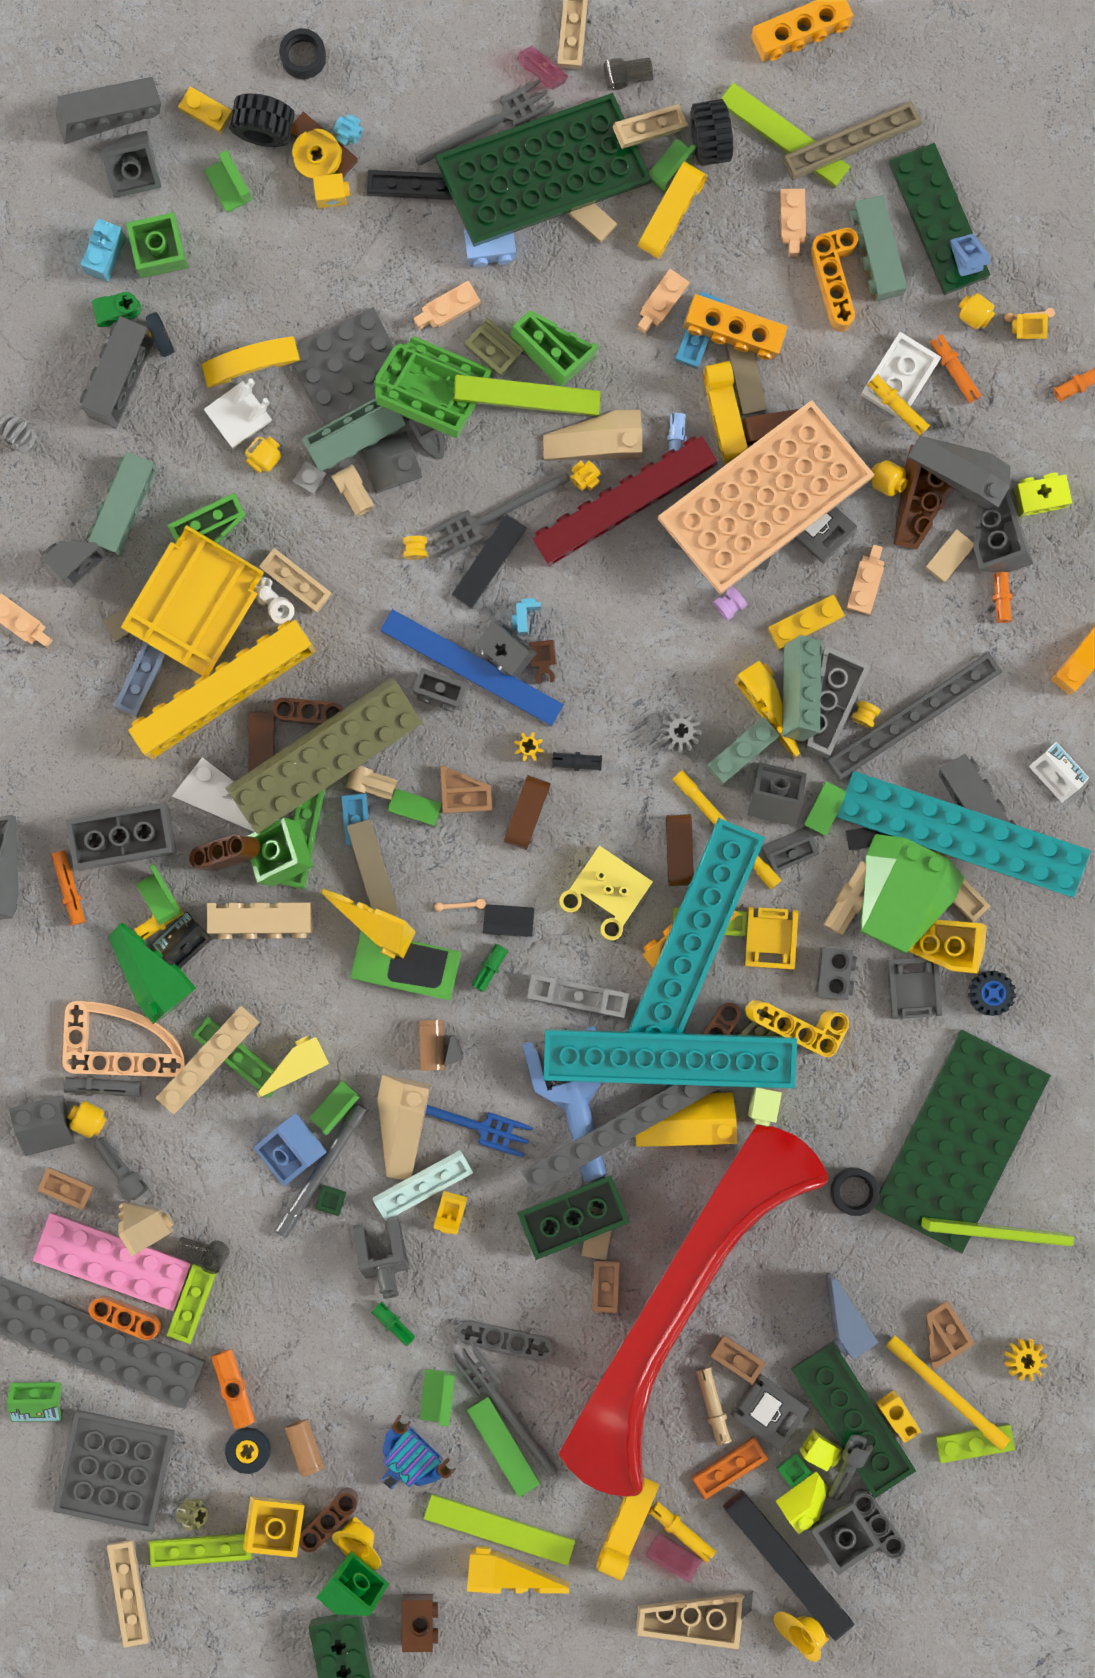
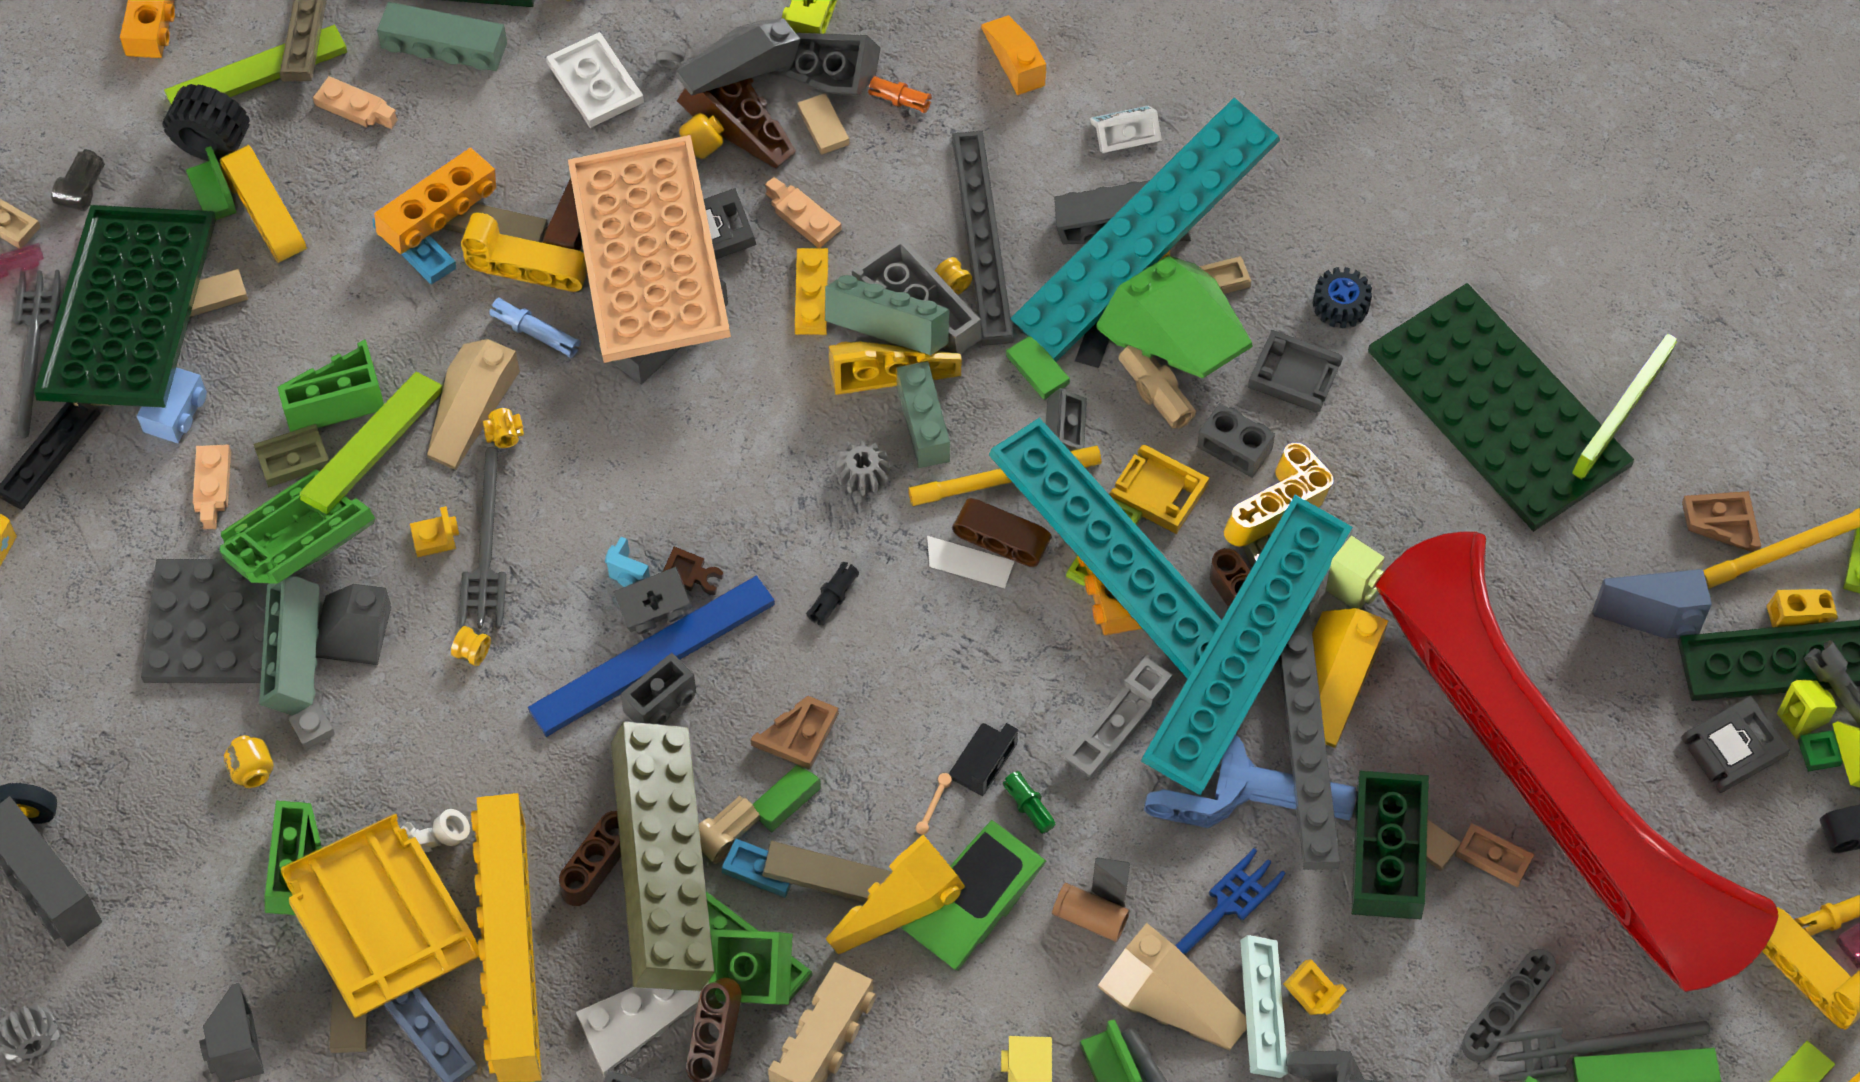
camera: 60 degrees left, 25 degrees down
(122, 503) = (197, 947): sand green brick -> none
(239, 413) = (180, 767): white plate -> none
(250, 359) = (124, 721): yellow slope -> none
(260, 738) = (595, 934): reddish brown tile -> none
(295, 580) = (427, 796): tan plate -> none
(351, 487) = (349, 682): tan piece -> none
(429, 438) = (345, 569): dark grey plate -> none
(486, 475) = (435, 534): none -> yellow bracket
(489, 561) = (538, 578): black tile -> none
(525, 740) = (785, 634): yellow gear -> none
(527, 812) = (863, 673): reddish brown beam -> none
(610, 886) = (1005, 624): light yellow piece -> none
(625, 500) = (559, 399): dark red brick -> none
(650, 126) = (154, 184): tan plate -> none
(650, 838) = (969, 562): none -> white sticker
(662, 300) = (355, 266): light nougat hinge -> none
(713, 1406) = (1705, 804): tan pin -> none
(729, 1468) = (1787, 824): orange tile -> none
(730, 604) = (744, 352): lavender wheel -> none
(737, 1359) = (1654, 750): medium nougat plate -> none
(777, 794) = (995, 403): dark grey slope -> none
(836, 282) = (444, 94): light orange beam -> none
(854, 1210) = (1514, 514): black tyre -> none
(898, 405) = (628, 88): yellow pin -> none
(953, 945) = (1264, 307): yellow wedge -> none
(955, 368) = (621, 27): orange pin -> none
(1032, 1352) = (1790, 450): yellow gear -> none

